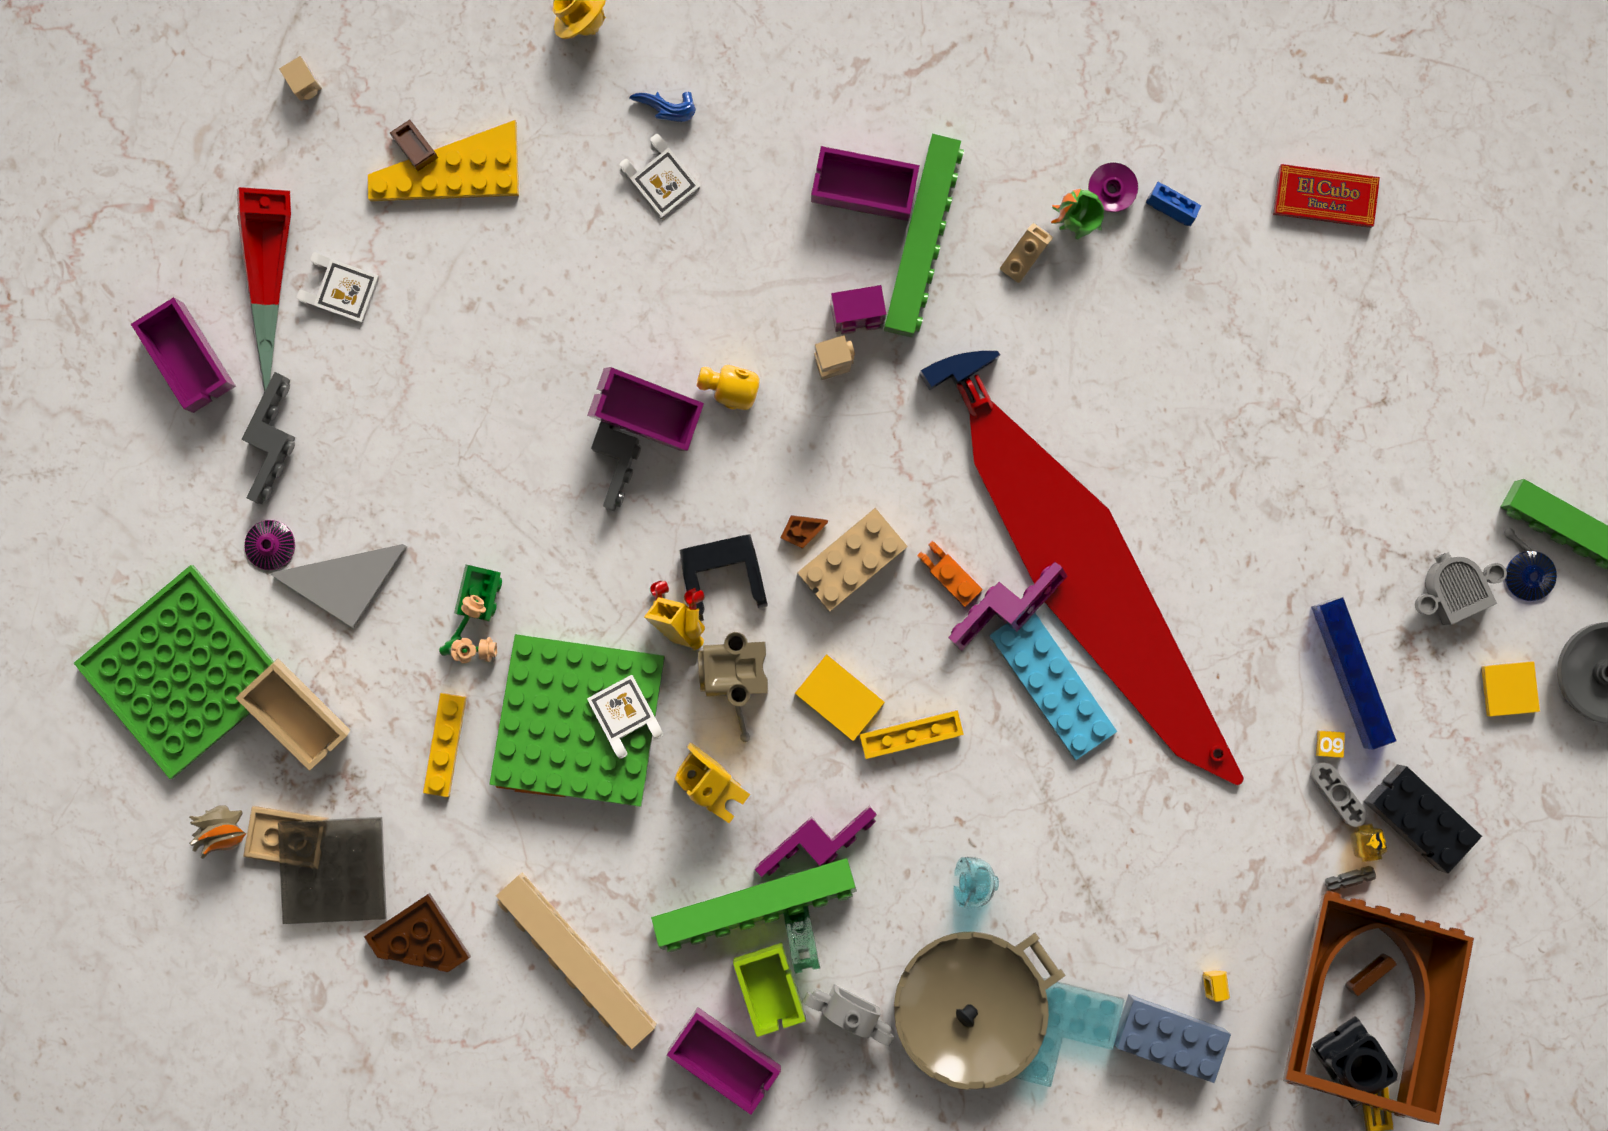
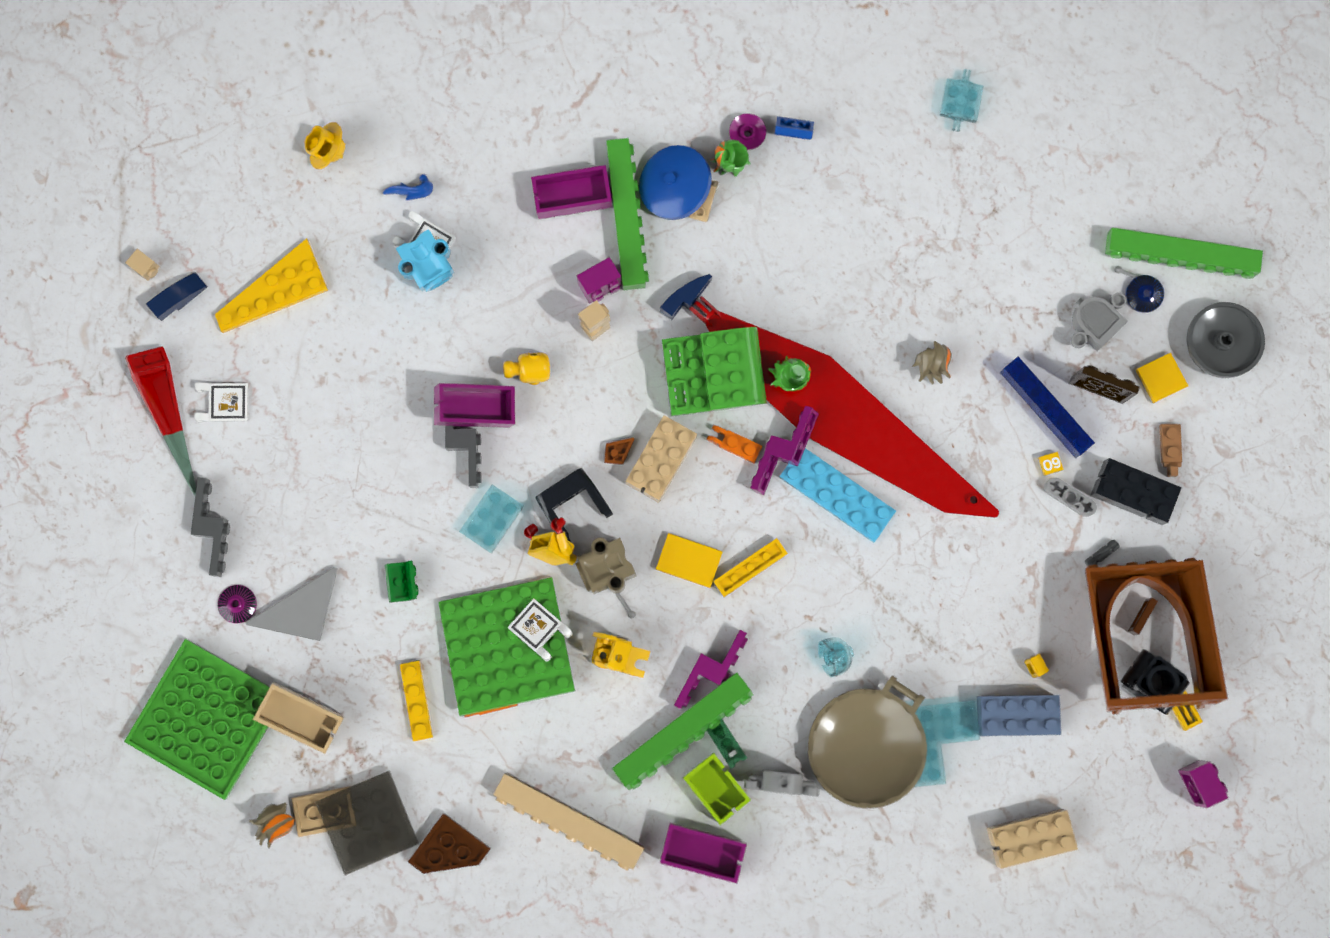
camera: 15 degrees left, 5 degrees down
(183, 355) = (127, 490): magenta piece -> none
(328, 134) = (176, 296): none -> dark blue slope
(413, 145) = (240, 282): reddish brown tile -> none
(462, 648) = (405, 623): light nougat plant -> none
(616, 556) = (491, 518): none -> clear light blue plate
(651, 214) = (429, 267): none -> medium azure piece
(957, 476) = (714, 371): none -> bright green piece
(967, 1015) = (866, 754): black piece -> none
(998, 219) = (675, 182): none -> blue dish
(1052, 516) = (791, 374): none -> bright green hair
(1234, 566) = (934, 363): none -> dark tan hair
(1326, 195) = (899, 83): red tile -> none
(1368, 843) = (1104, 523): clear yellow head -> none
(1396, 246) = (961, 100): none -> clear light blue plate
(1437, 674) = (1104, 384): none -> dark brown plate
(1487, 780) = (1171, 448): none -> medium nougat hinge

